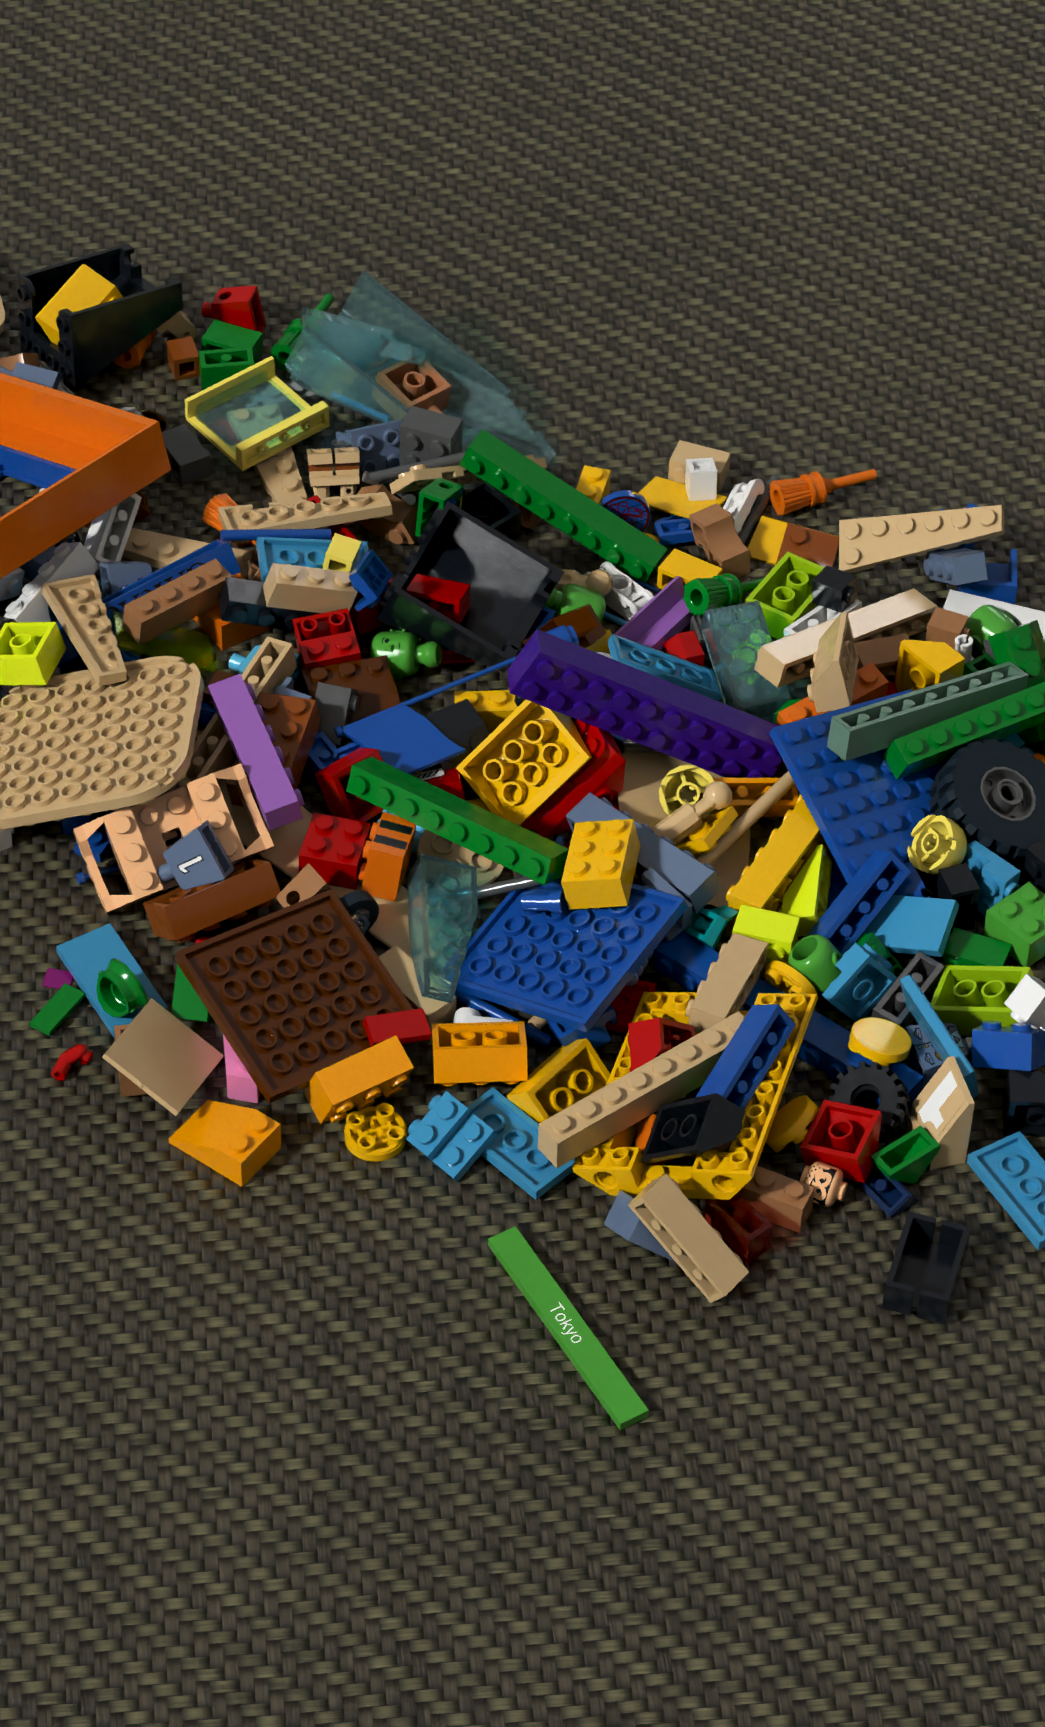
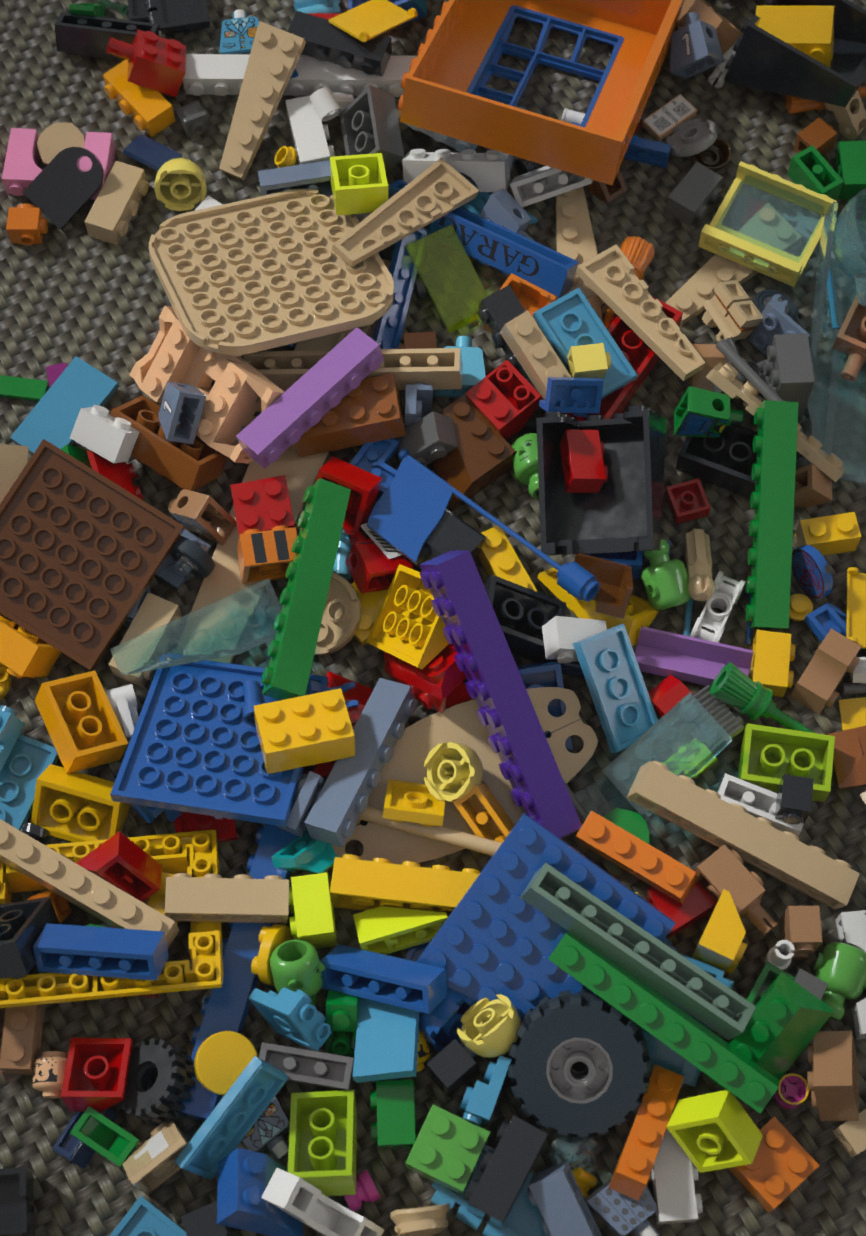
camera: 70 degrees right, 20 degrees up
(120, 990) = (32, 421): green hat -> none
(174, 602) = (474, 262): medium nougat brick -> none
(187, 922) = (104, 434): none -> white brick
(252, 534) = (601, 301): blue bar -> none
(407, 1025) = (70, 645): red tile -> none
(689, 817) = (422, 785): tan piece -> none
(791, 1123) = (108, 1018): yellow tile -> none
(834, 667) = (650, 842): tan slope -> none

